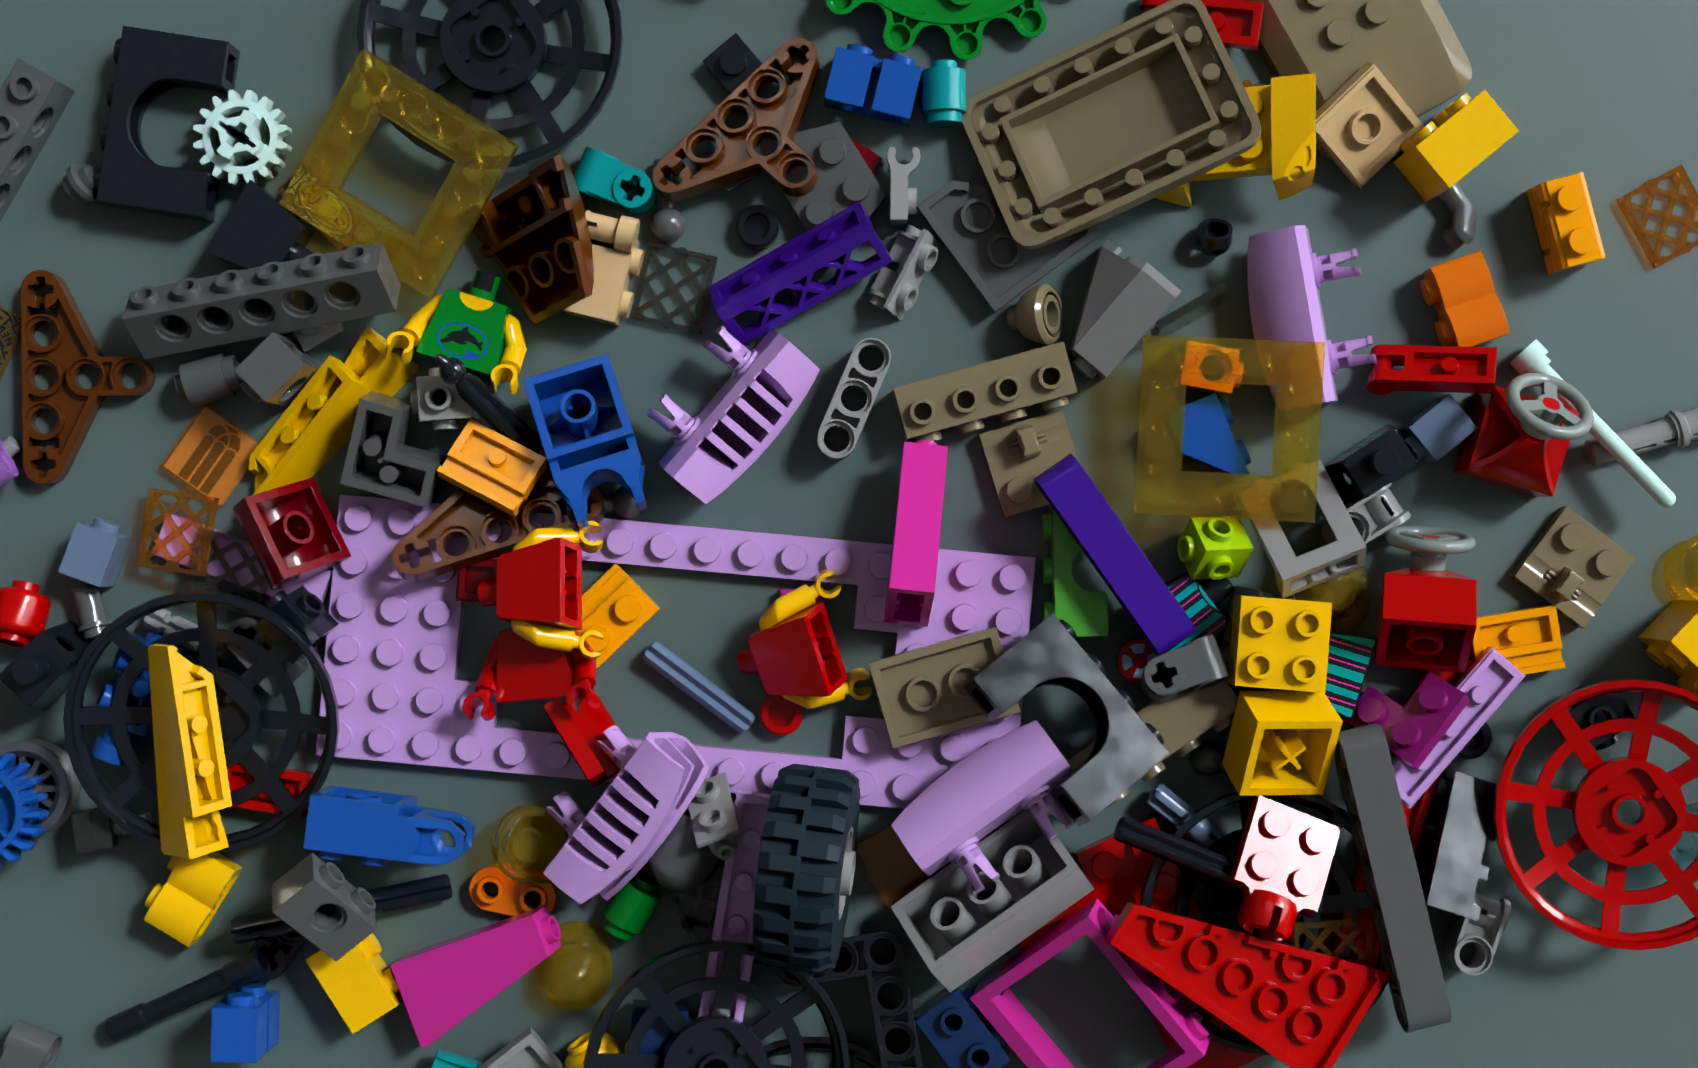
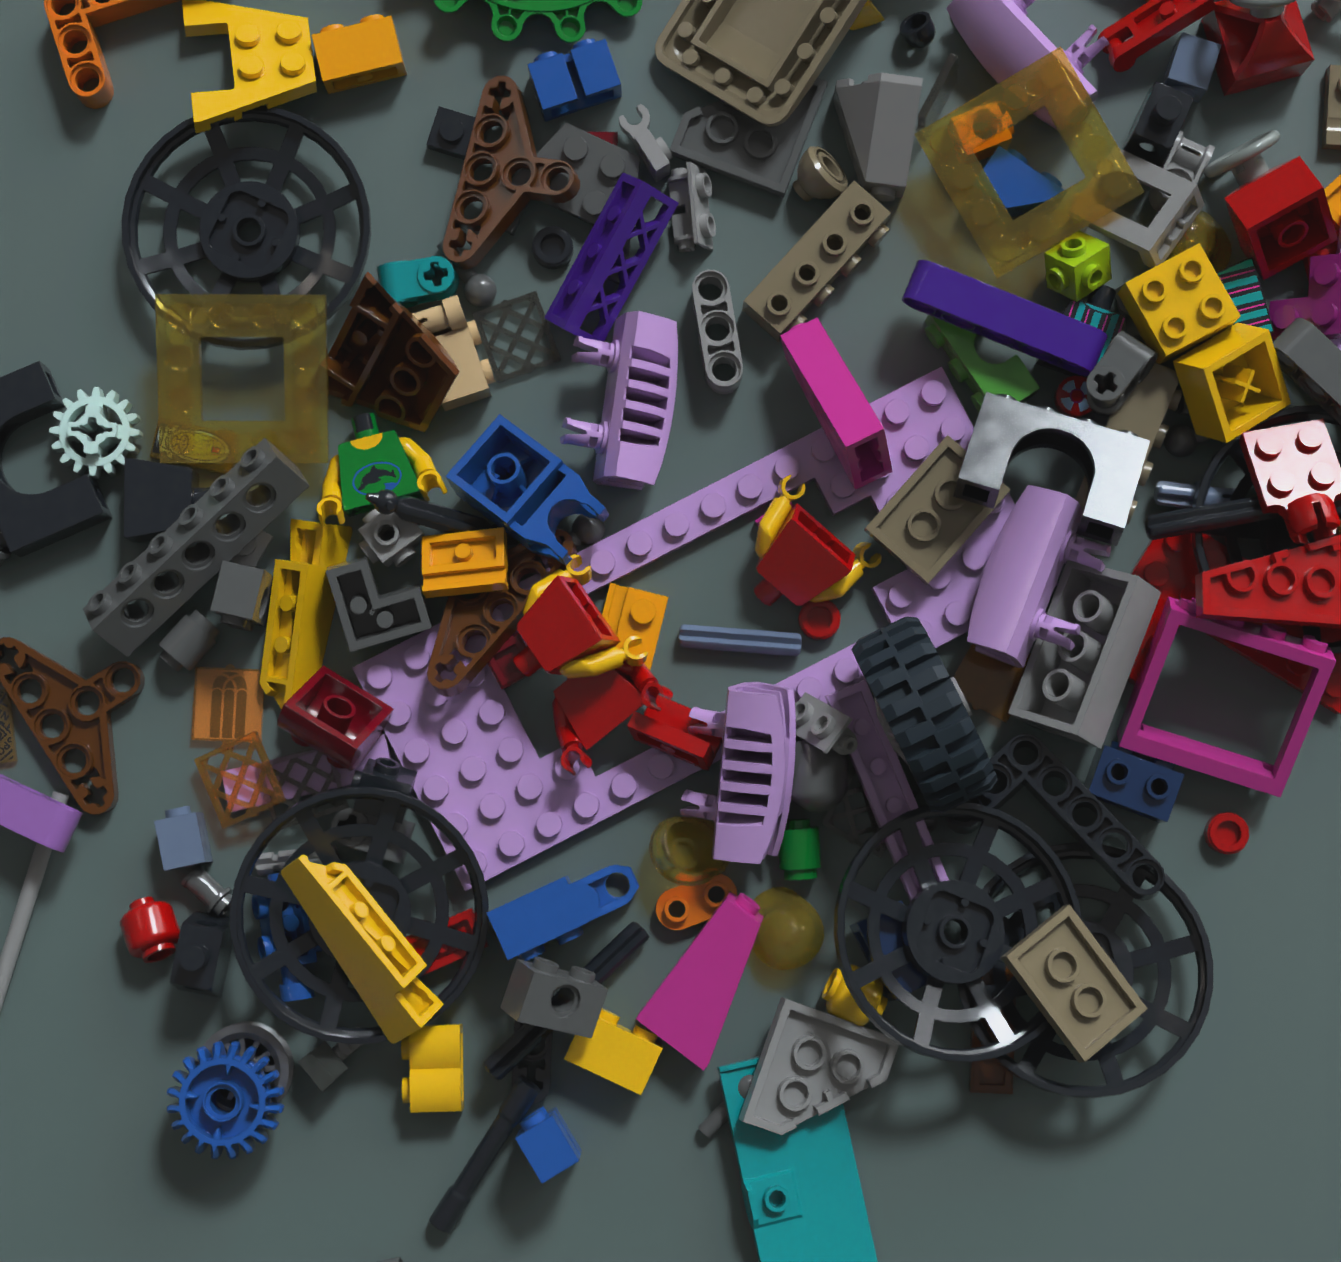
camera: 35 degrees left, 5 degrees down
(944, 93) = (634, 51): teal brick -> none
(1022, 453) = (876, 295): dark tan hinge -> none

